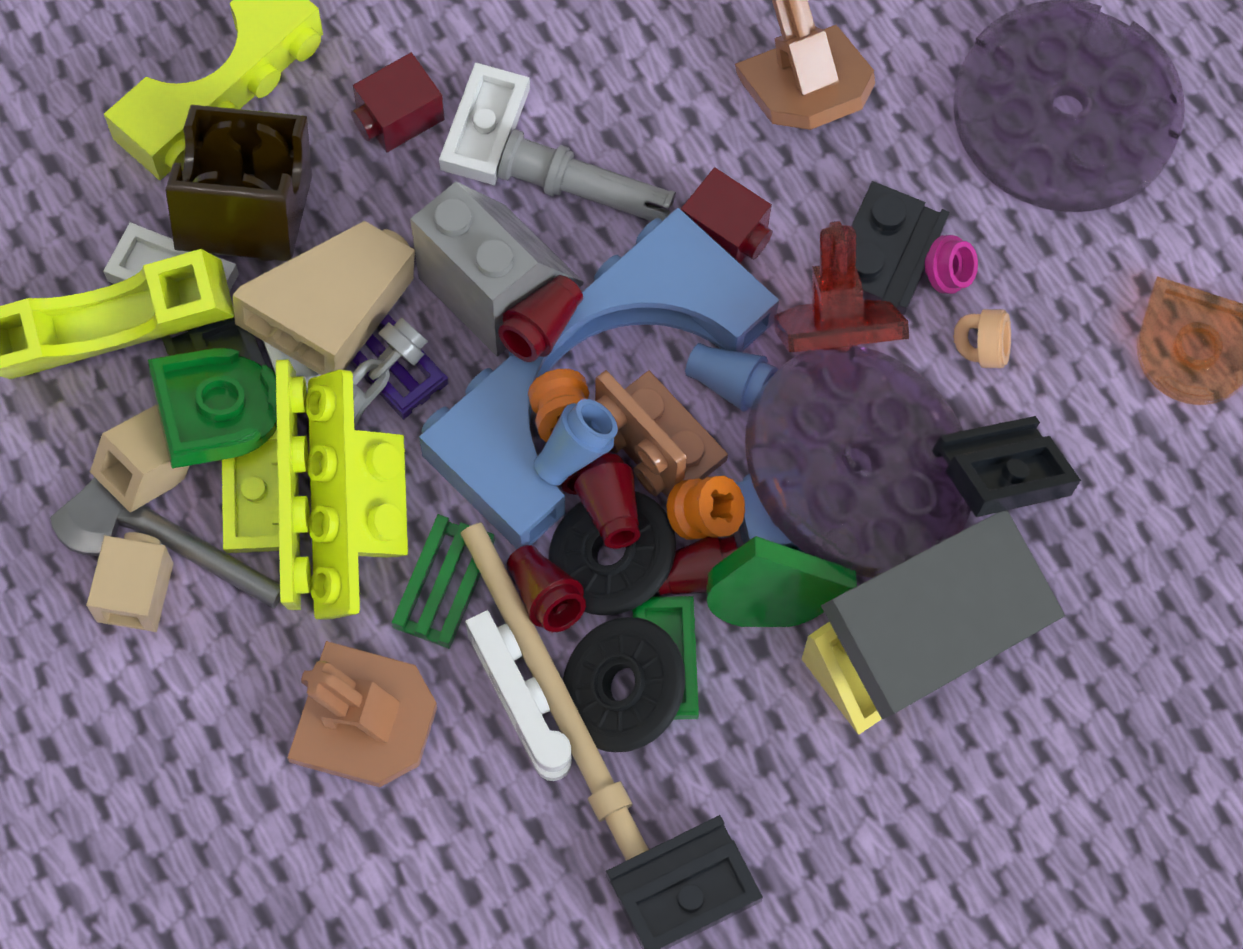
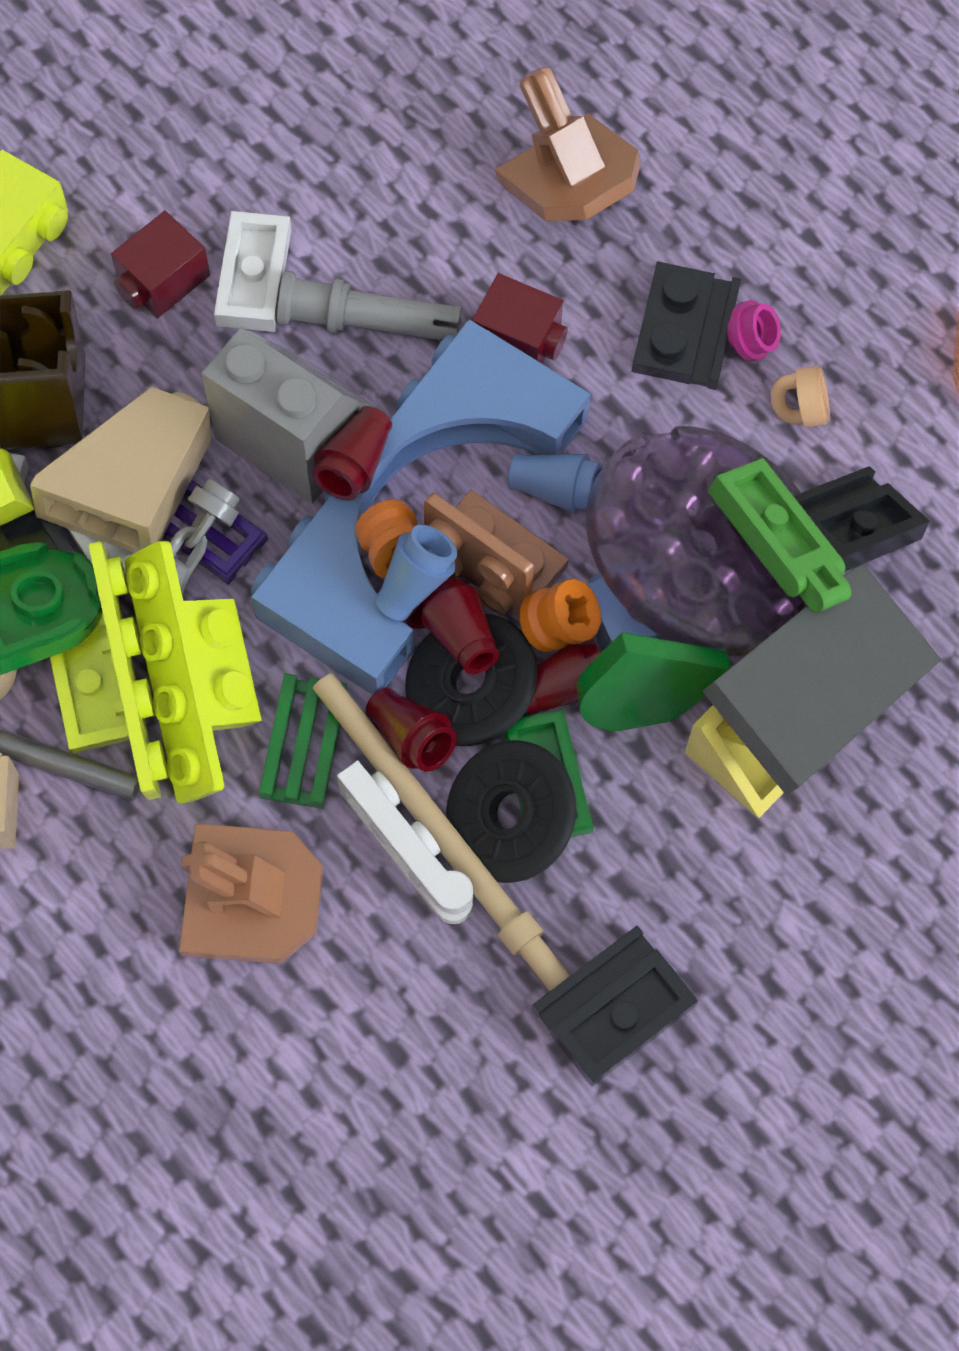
camera: 10 degrees left, 0 degrees up
(838, 311) = (653, 394): clear red piece -> none
(931, 469) = (782, 535): none -> bright green hinge
(1048, 156) = (821, 205): clear purple plate -> none

